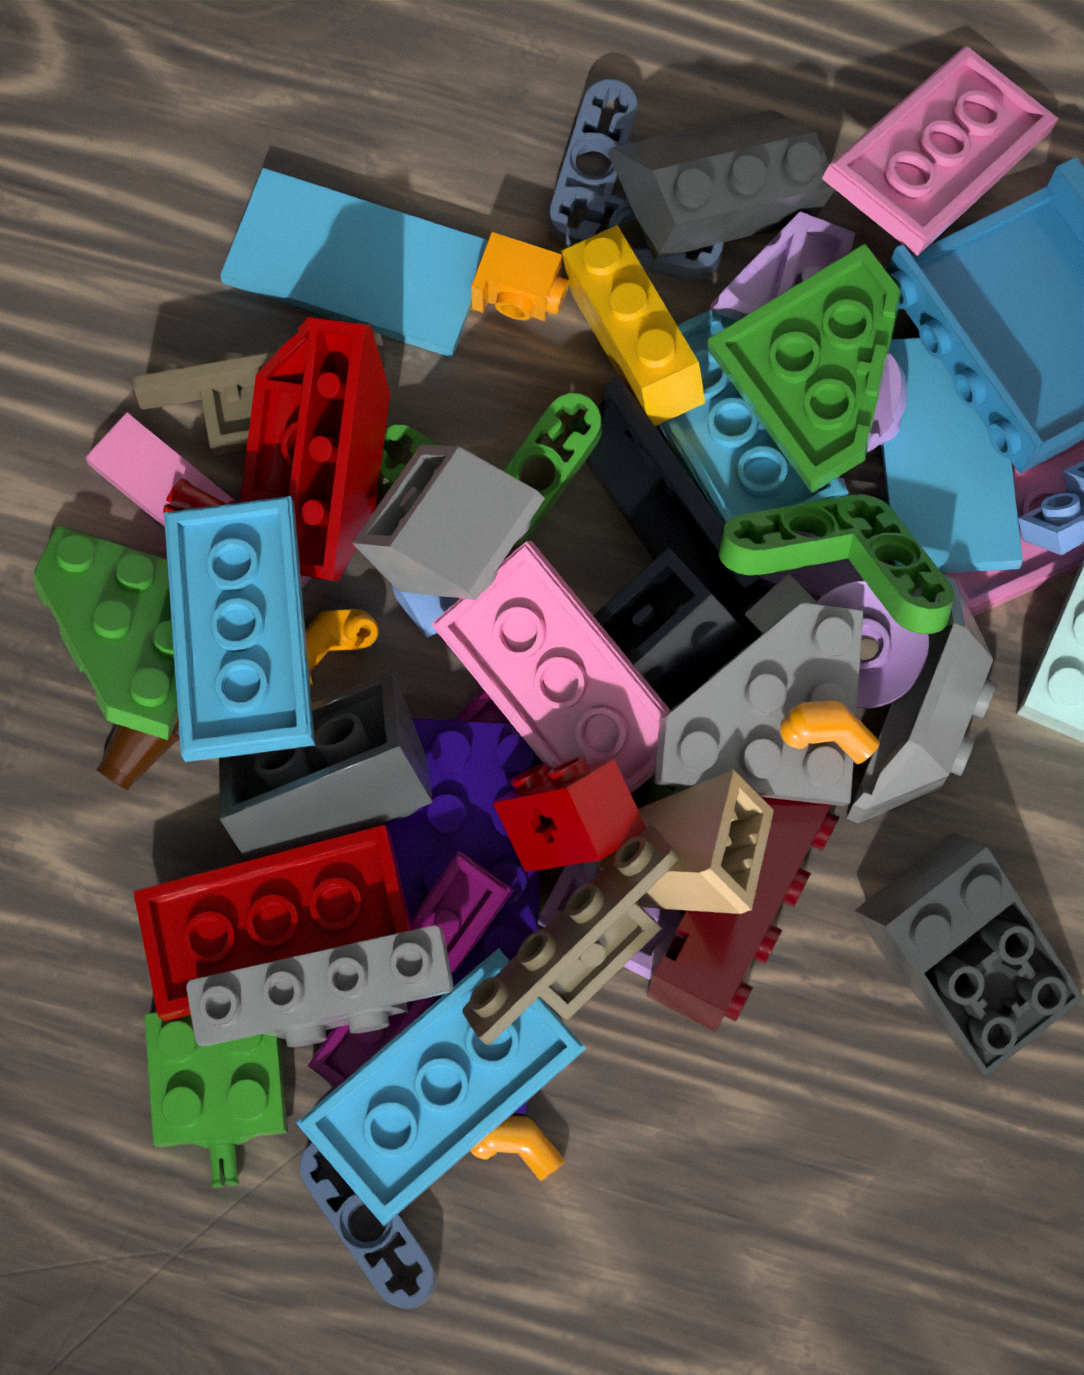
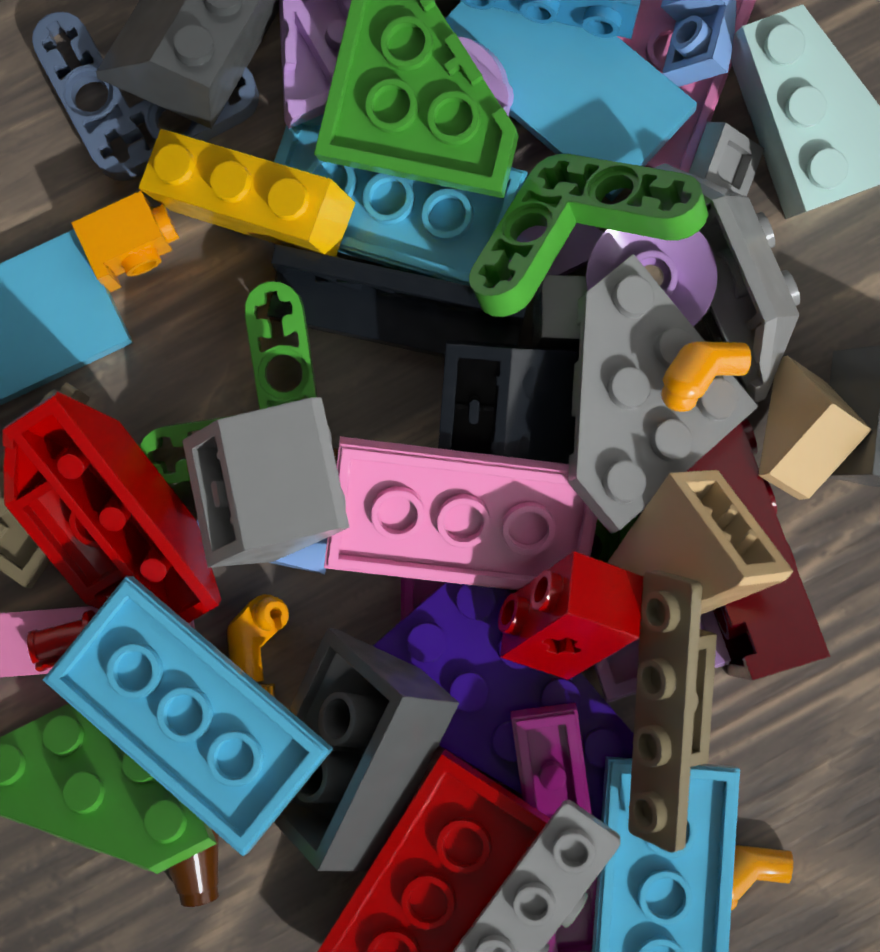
camera: 40 degrees left, 10 degrees up
(870, 858) = (806, 431): none -> tan slope
(1008, 624) = (726, 157): none -> light grey plate

